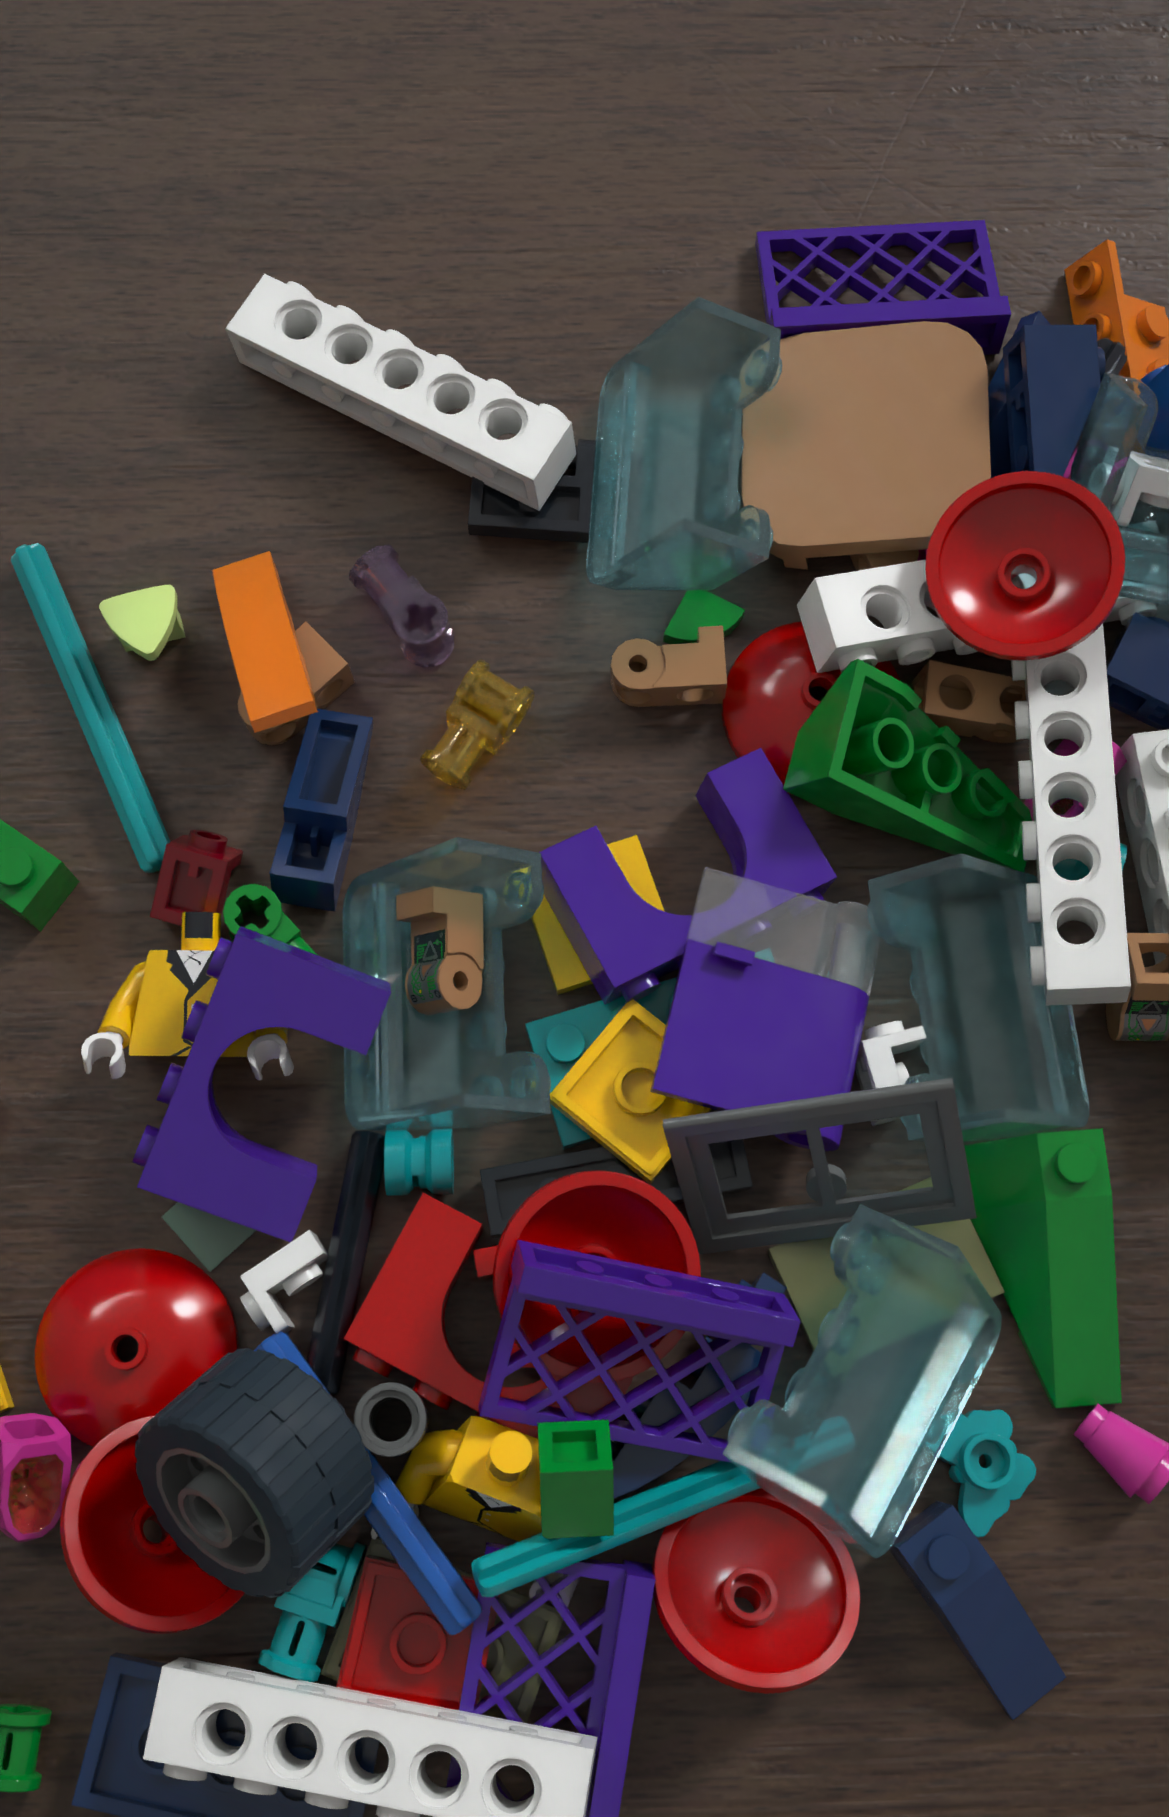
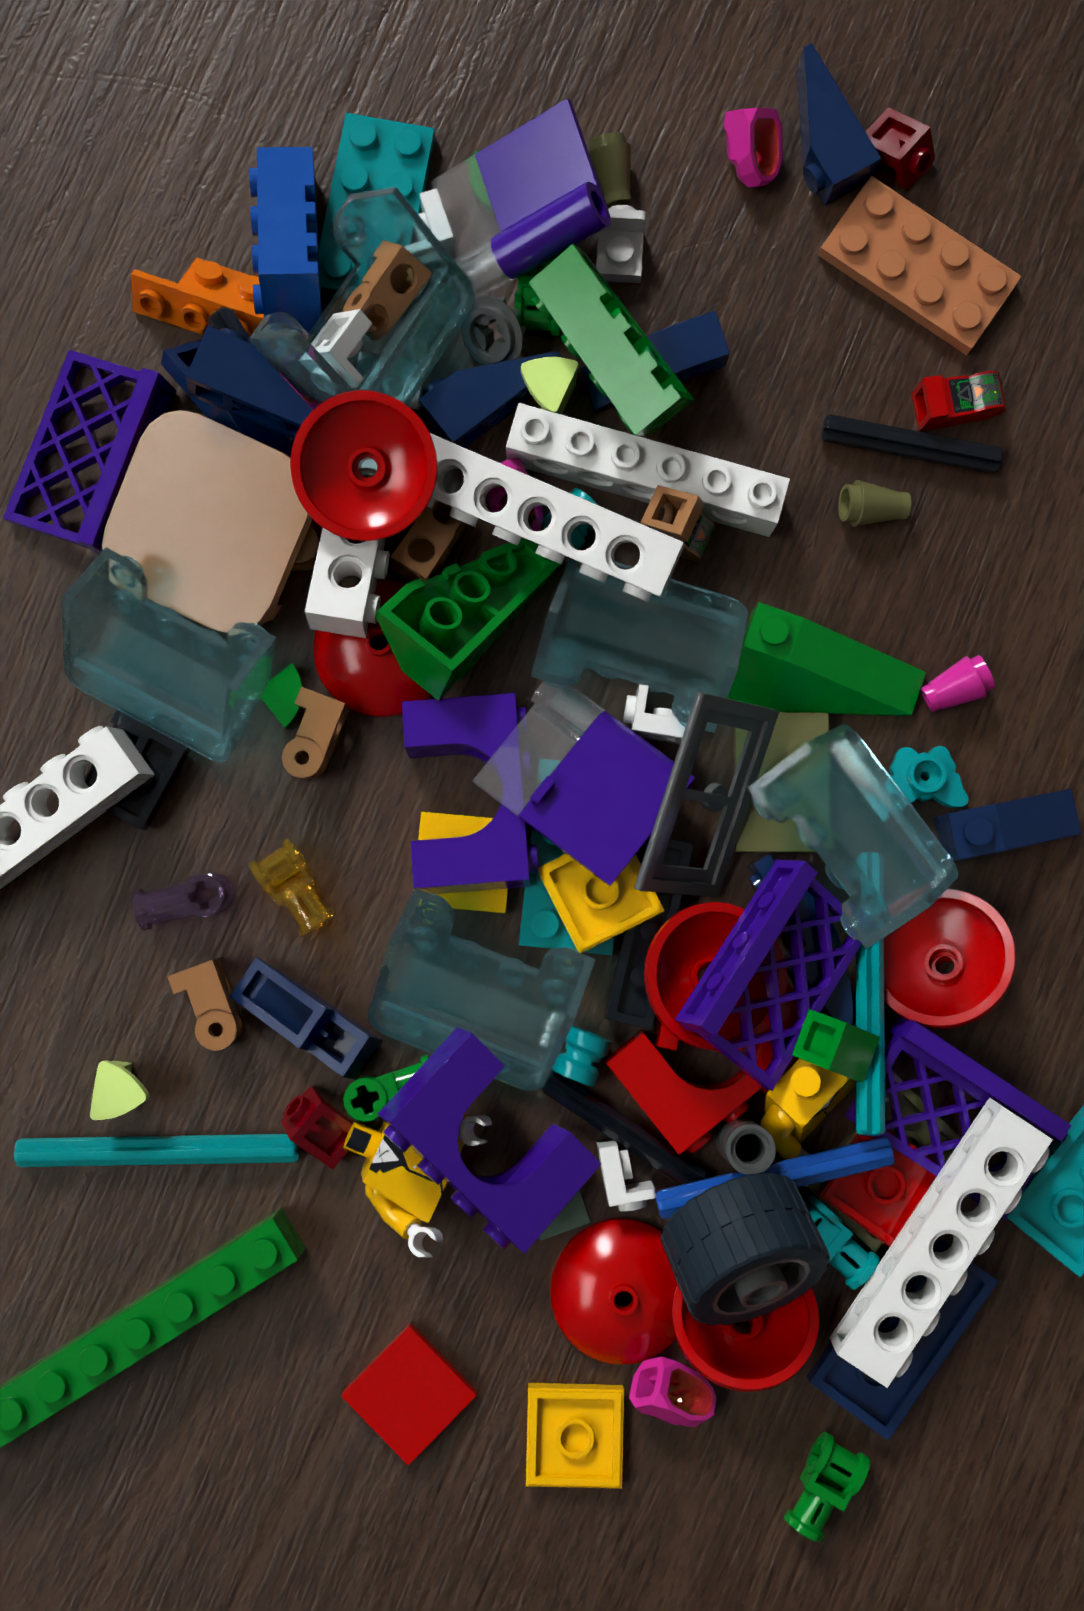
camera: 65 degrees left, 10 degrees up
(263, 642) = (173, 1014): orange slope -> none
(444, 948) = (447, 978): medium nougat leg -> none

